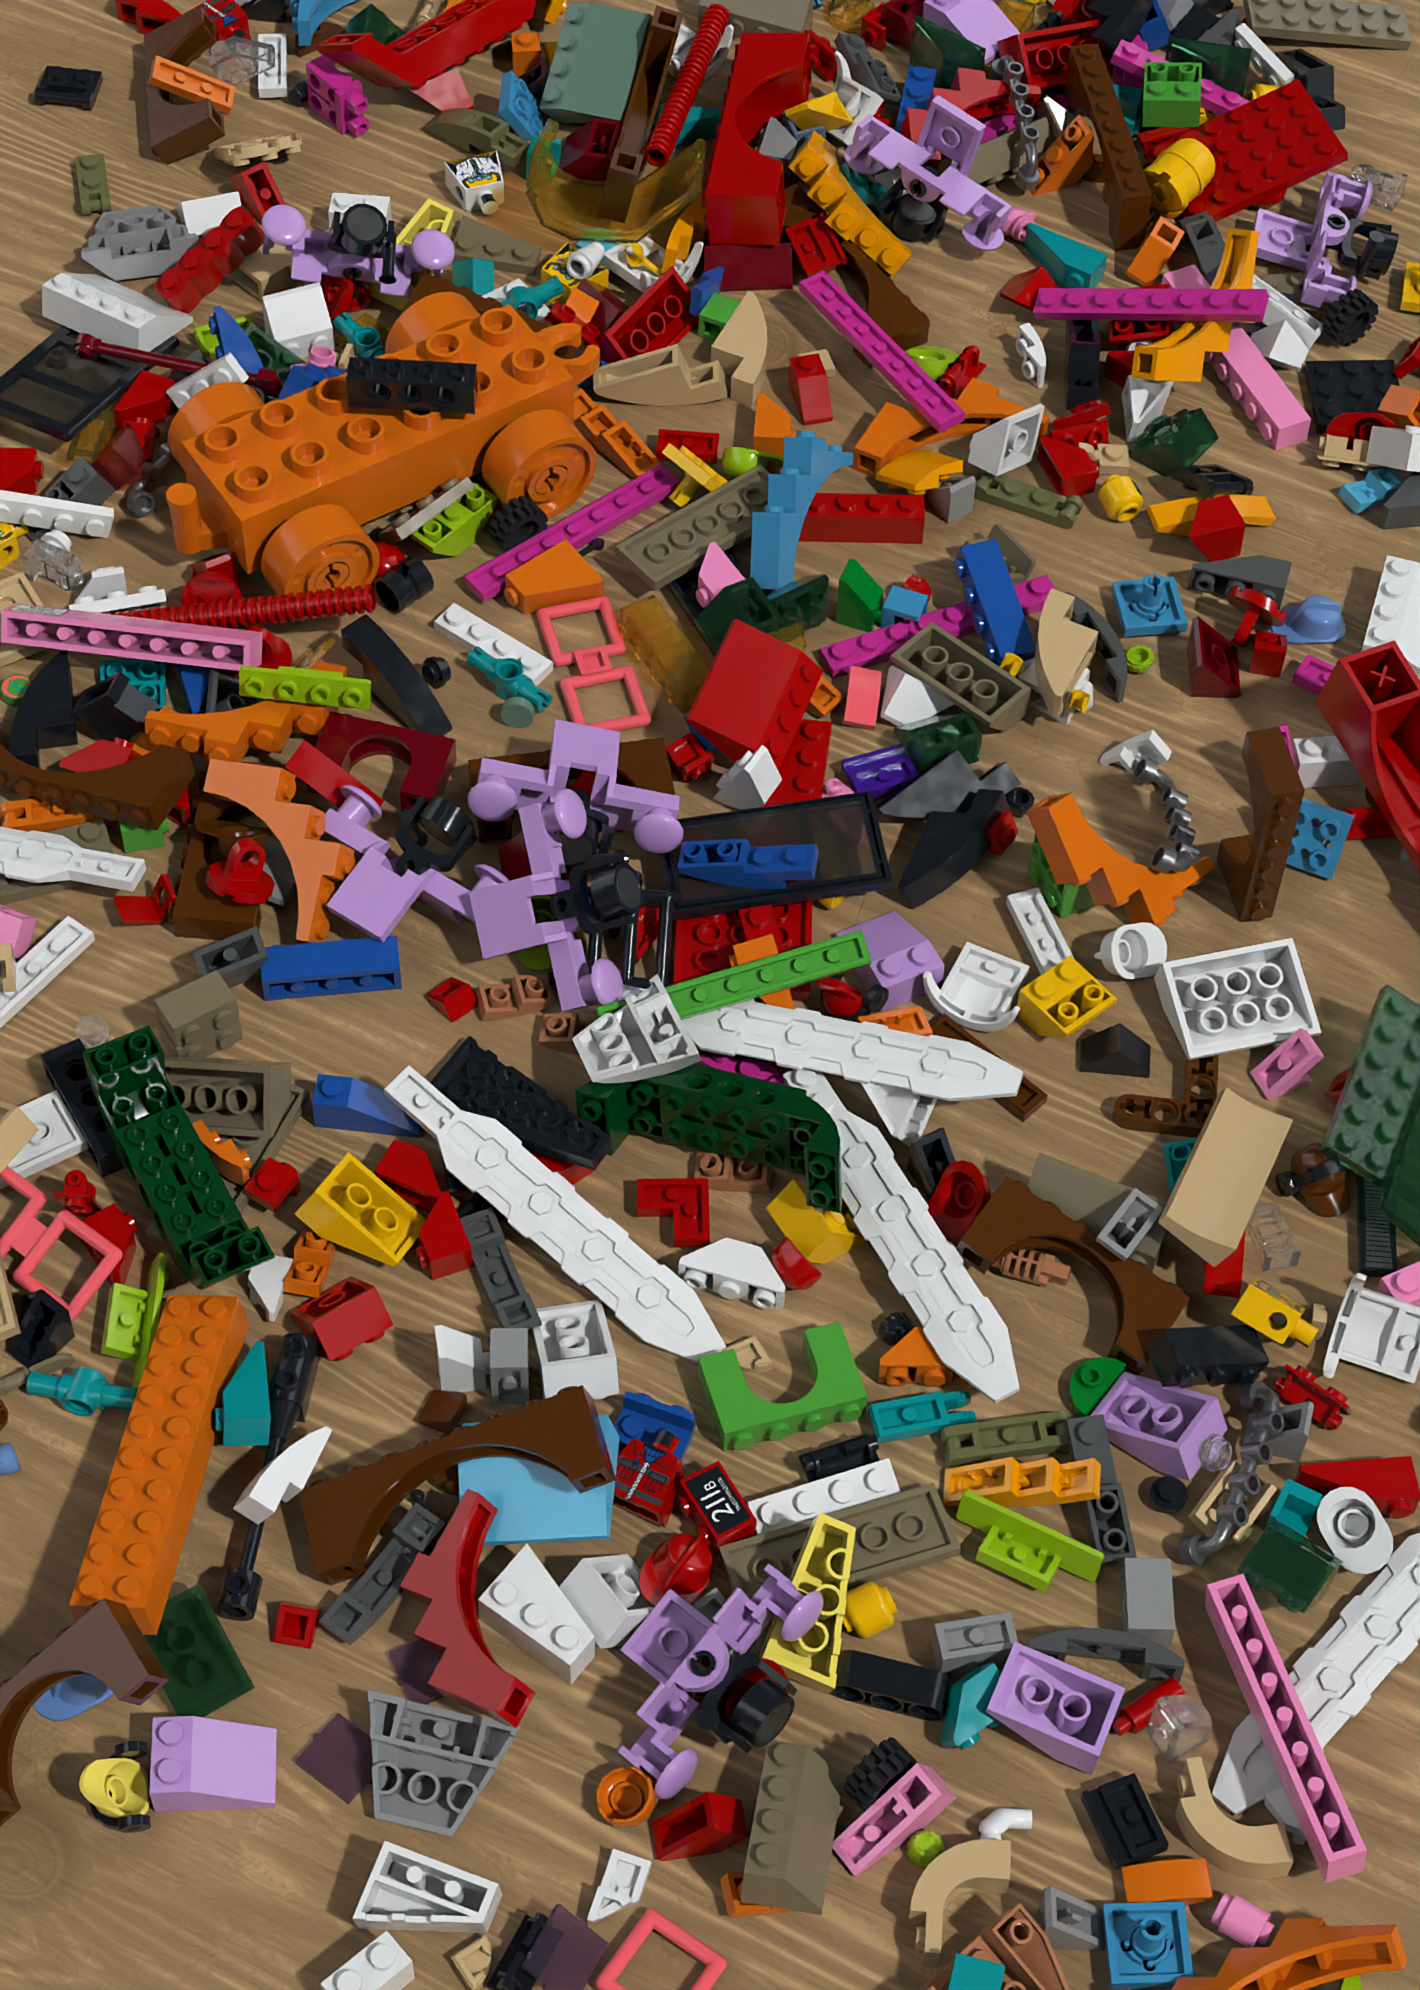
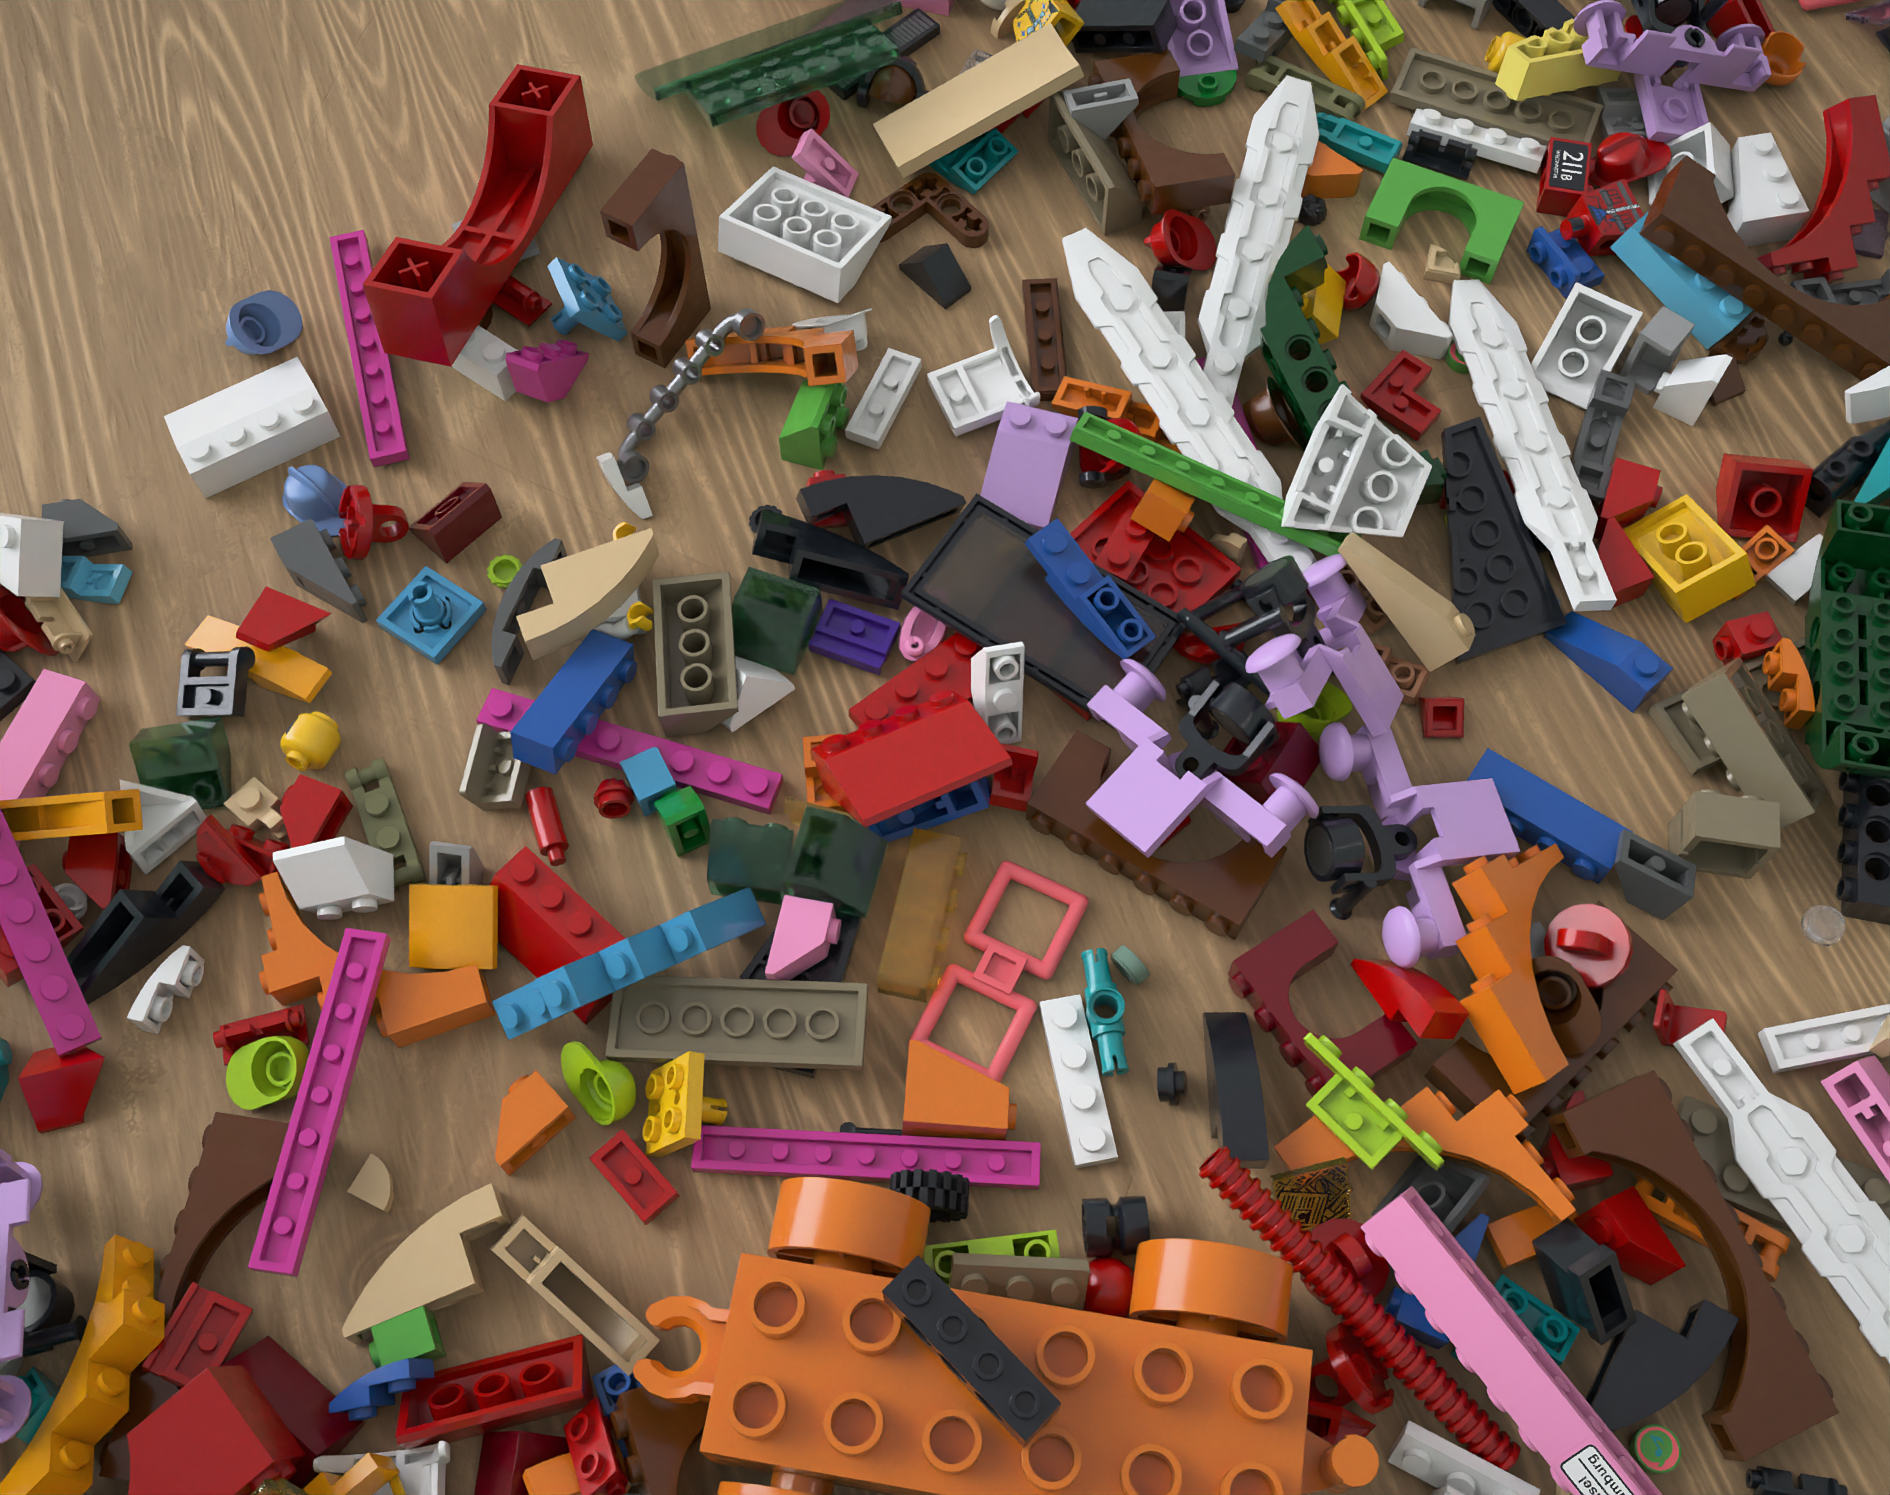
camera: 135 degrees left, 10 degrees up
(536, 1011) = (1418, 612): none -> tan slope
(612, 438) = (698, 1256): orange slope -> none
(620, 1886) = (1819, 31): white slope -> none
(810, 389) = (430, 1141): red slope -> none
(862, 697) = (785, 722): coral slope -> none
(932, 555) = (547, 824): none -> red cylinder
(1063, 1000) = (935, 321): yellow slope -> none
(1268, 653) = (397, 480): red slope -> none

